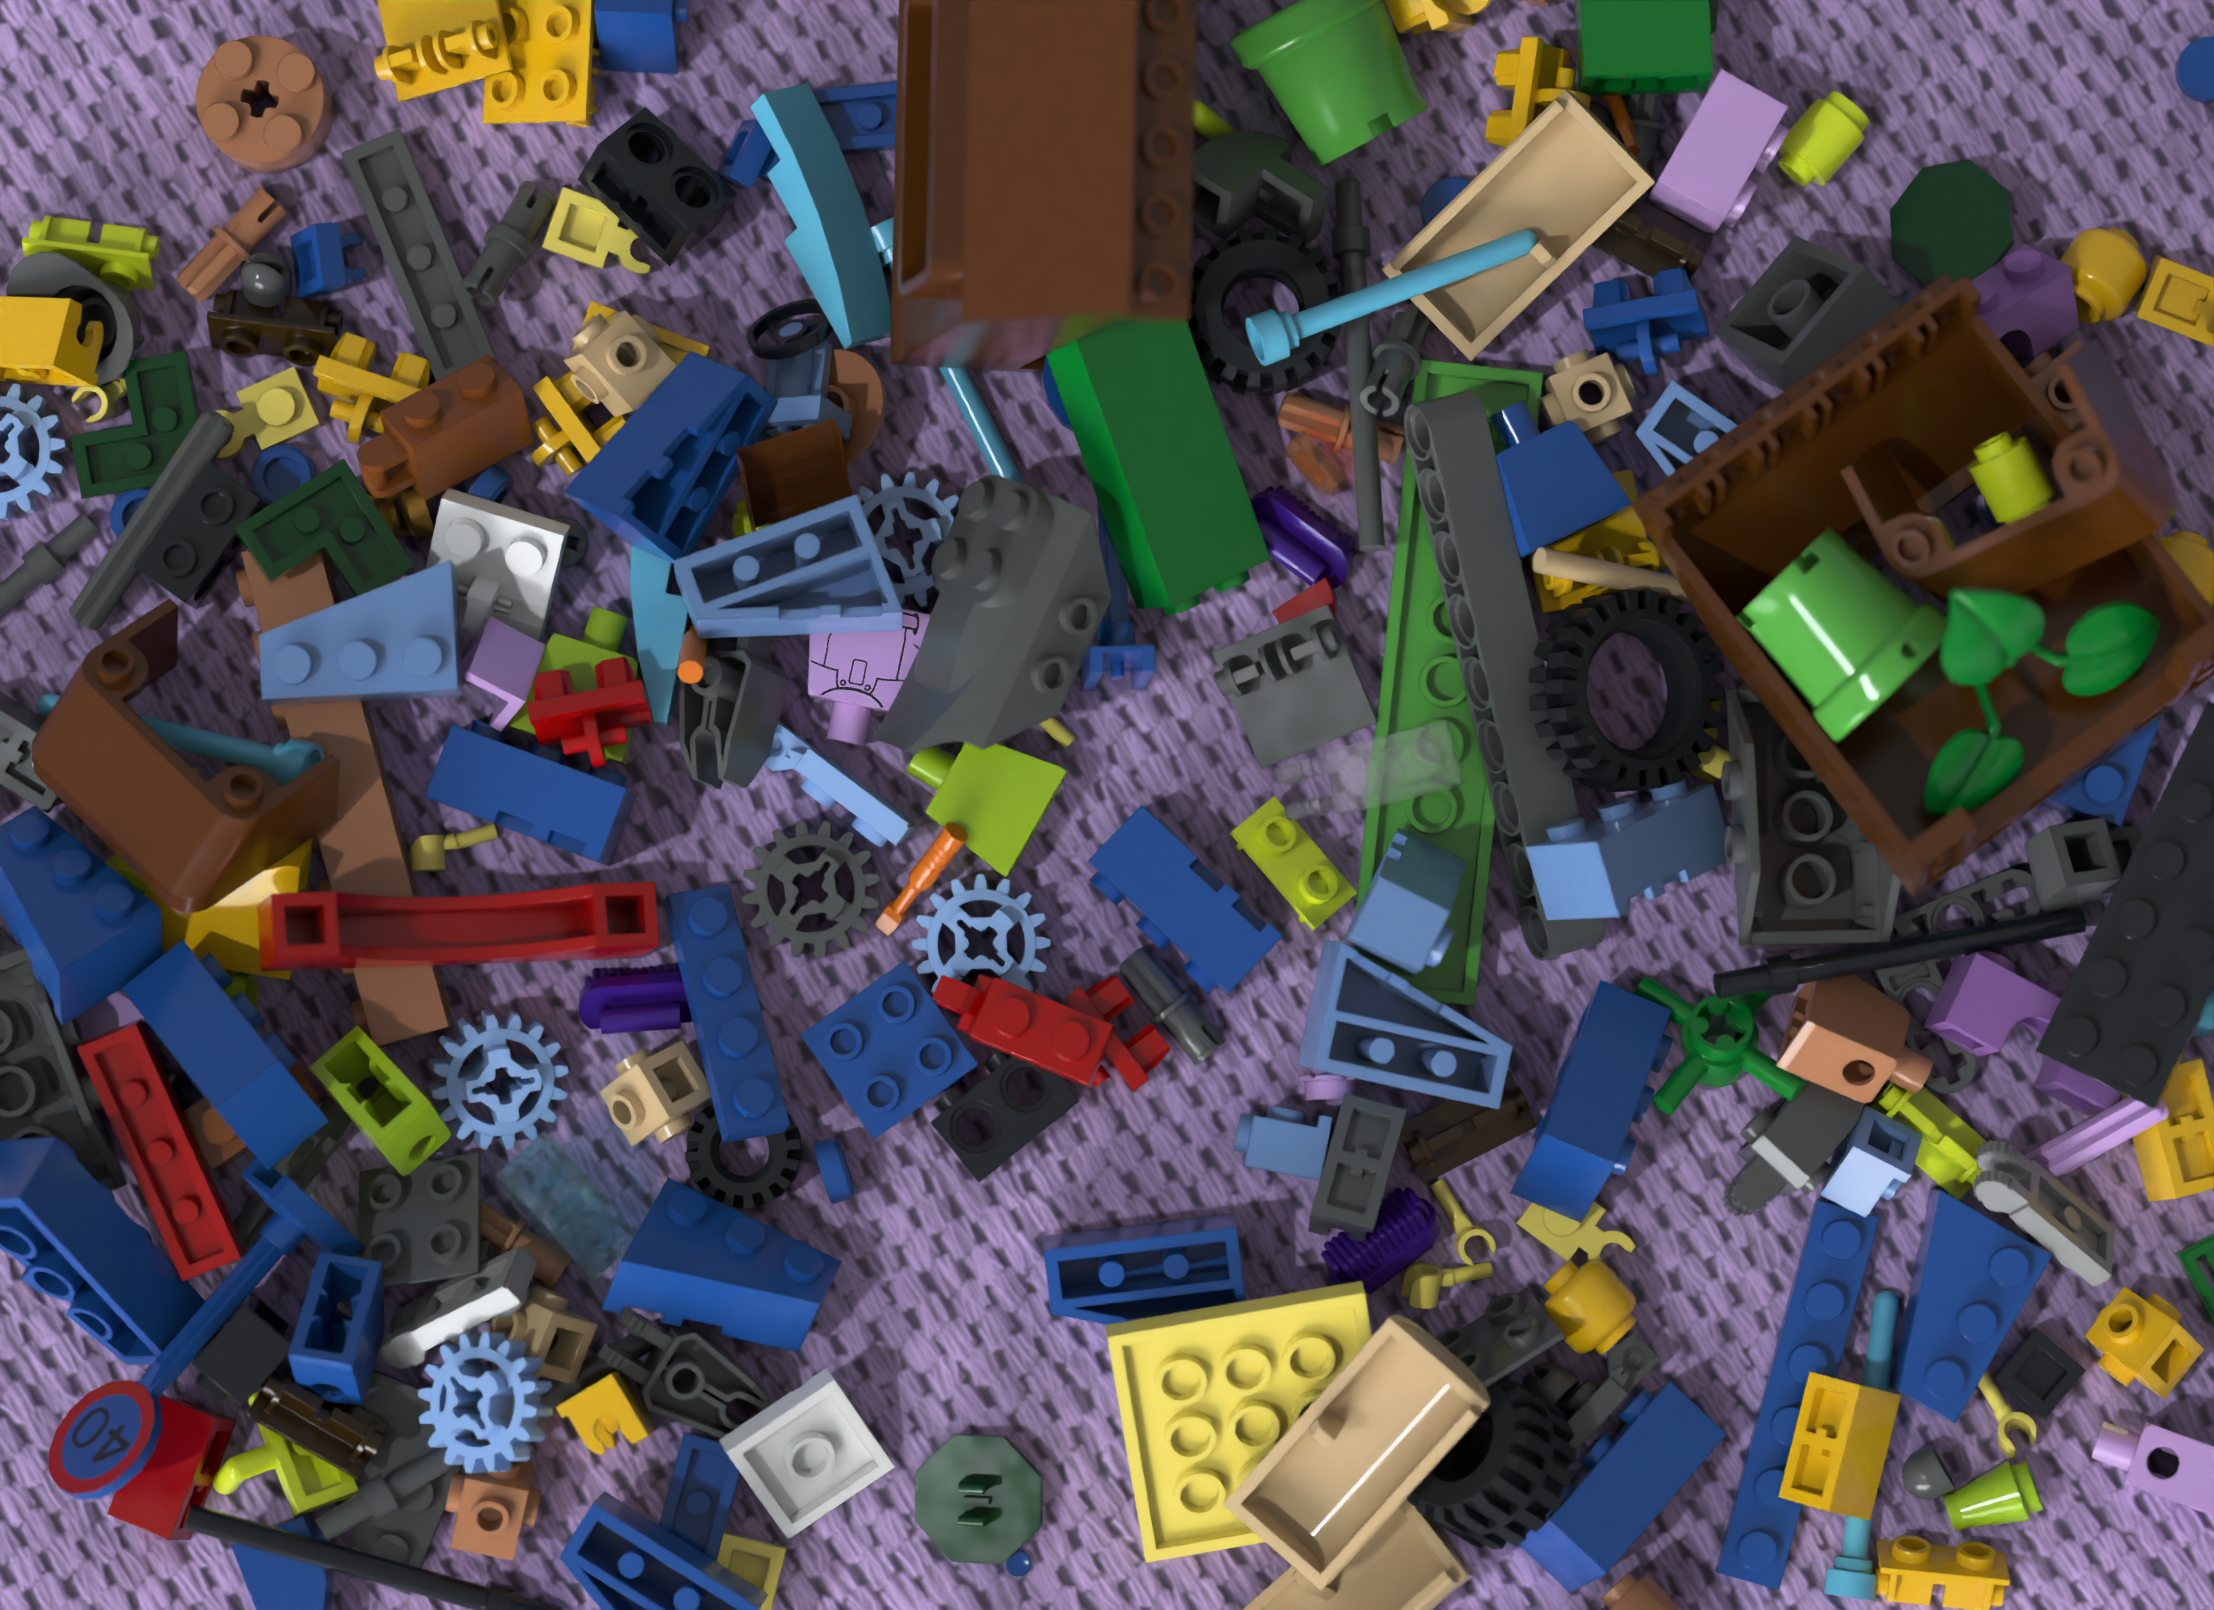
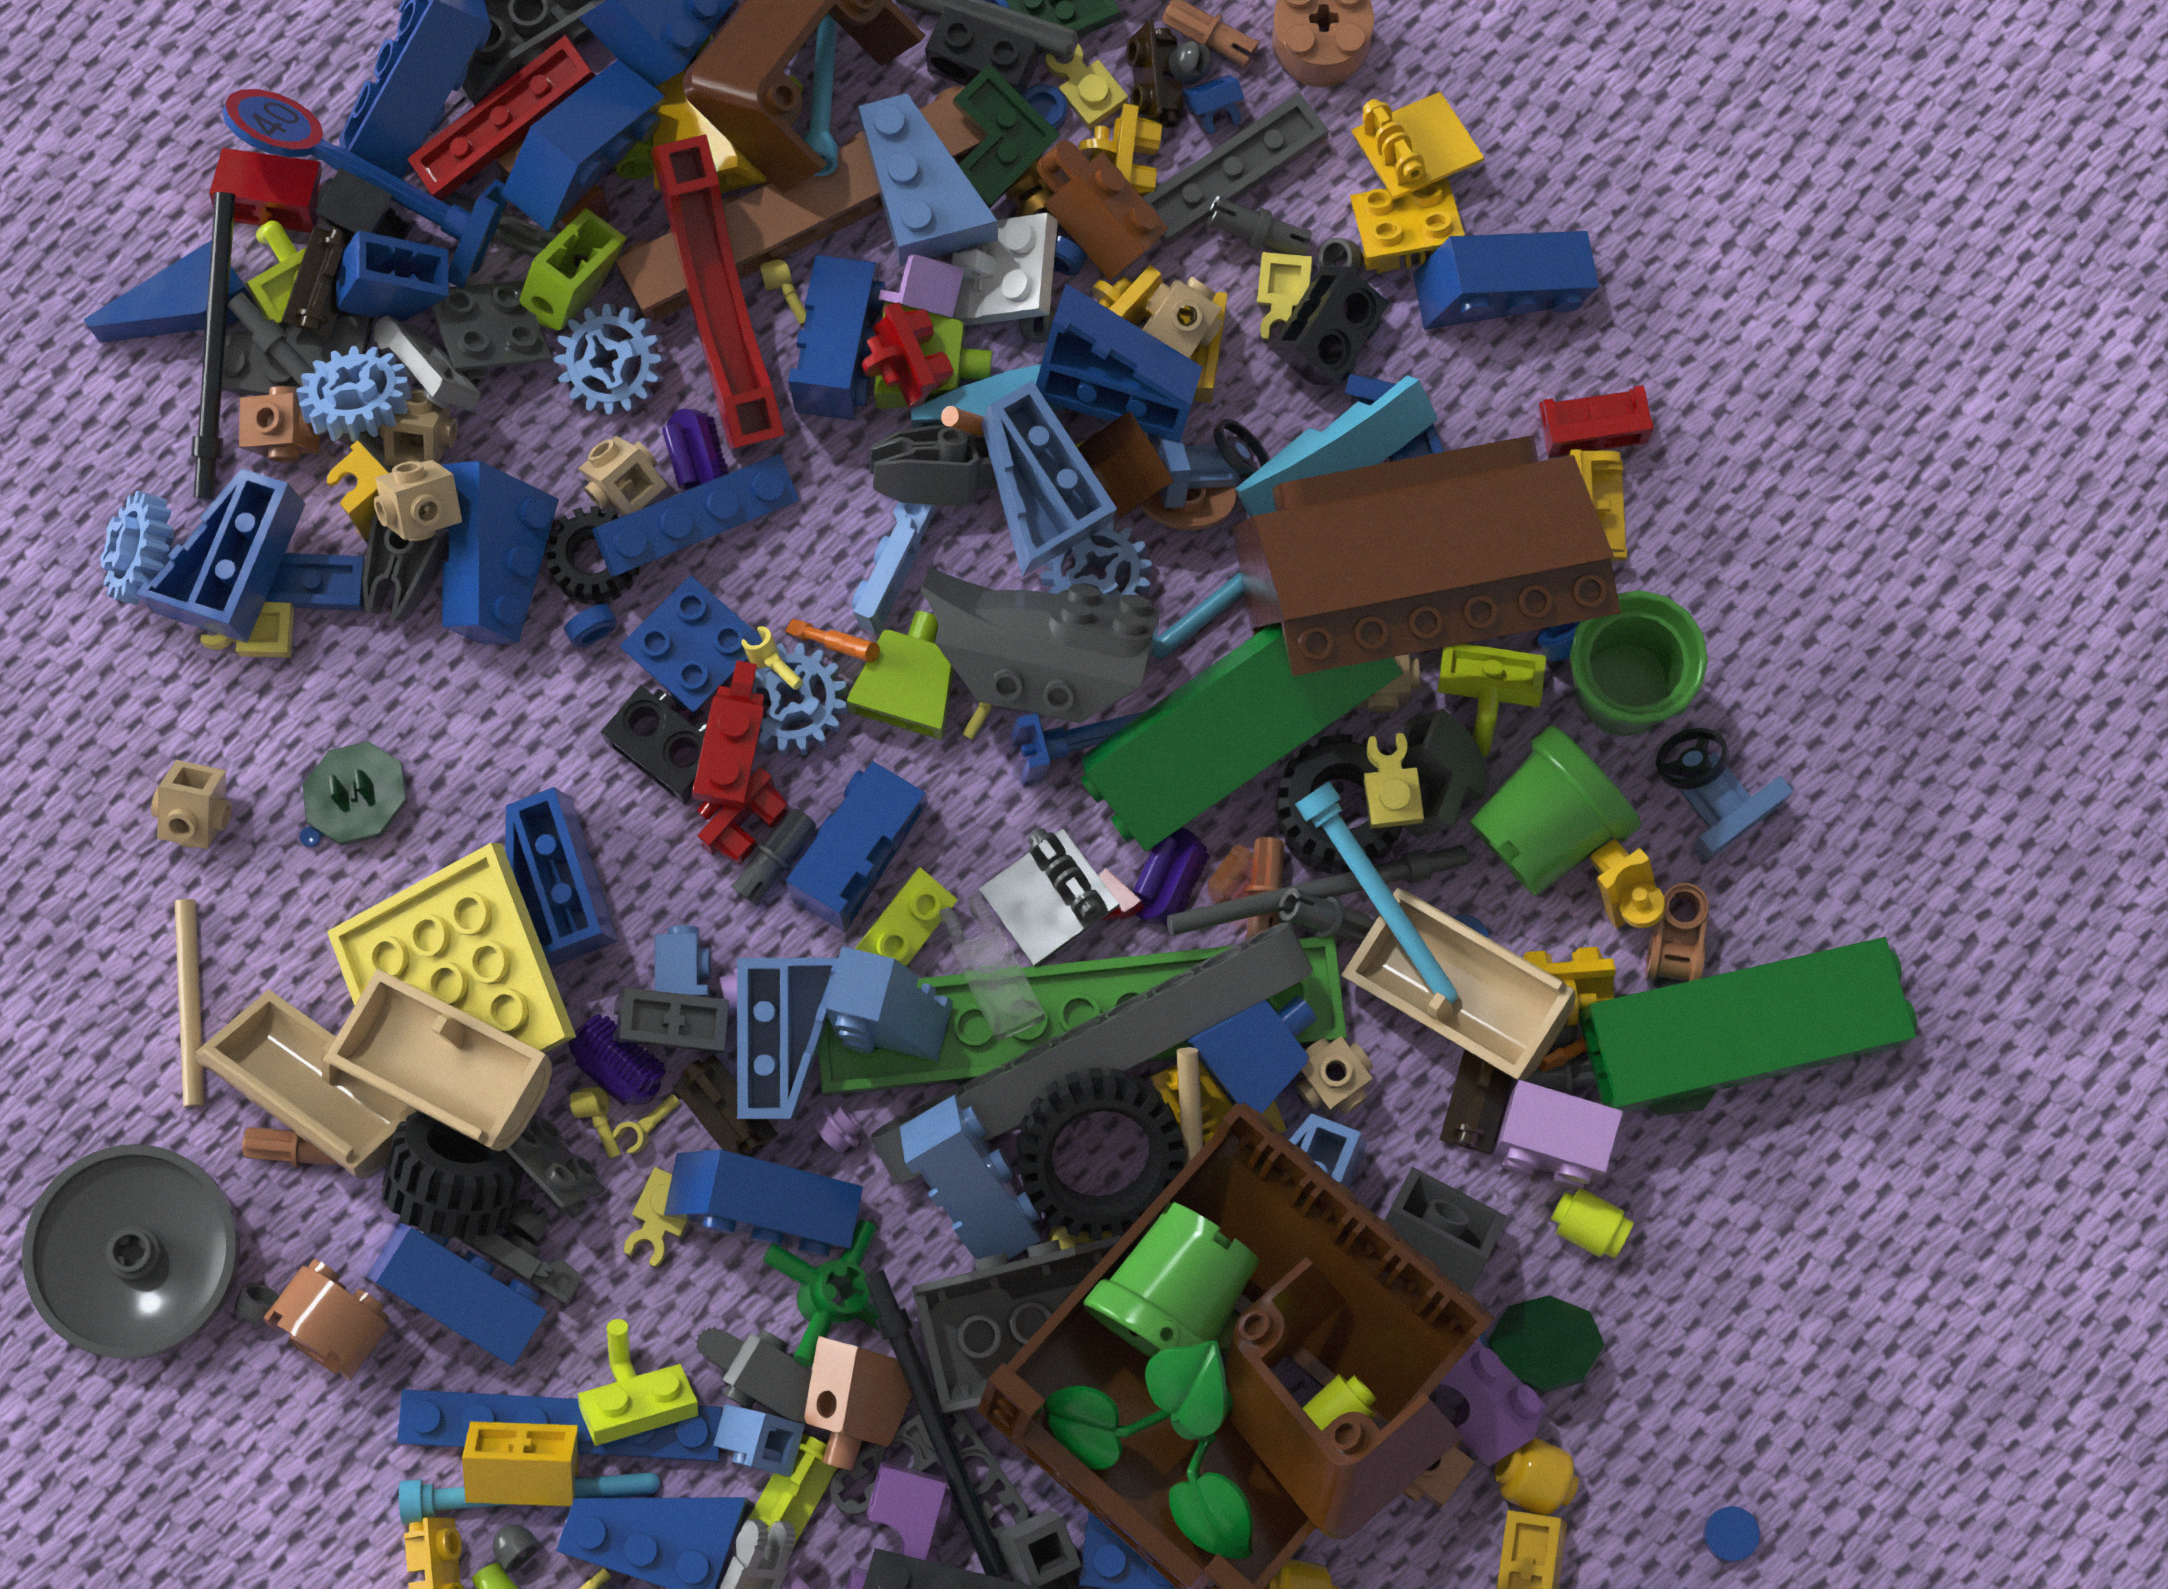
camera: 80 degrees right, 10 degrees down
(509, 1234) = (481, 421): nougat axle -> none
(554, 157) = (1338, 249): none -> dark grey hinge
(566, 1206) = (523, 424): clear light blue slope -> none
(651, 1346) = (417, 500): none -> tan brick
(787, 924) = (799, 580): dark grey gear -> none
(806, 1453) = (363, 650): white hinge -> none
(862, 673) = (984, 556): lavender torso -> none
(931, 959) = (767, 655): none -> light yellow hand
(1275, 245) = (1392, 792): none -> light yellow plate
(1519, 996) = (838, 1128): none -> lavender plate
(1589, 1305) = (597, 1236): yellow head -> none
(1645, 325) = (1403, 1113): blue hips -> none
(1795, 1298) = (634, 1401): none -> neon yellow plate

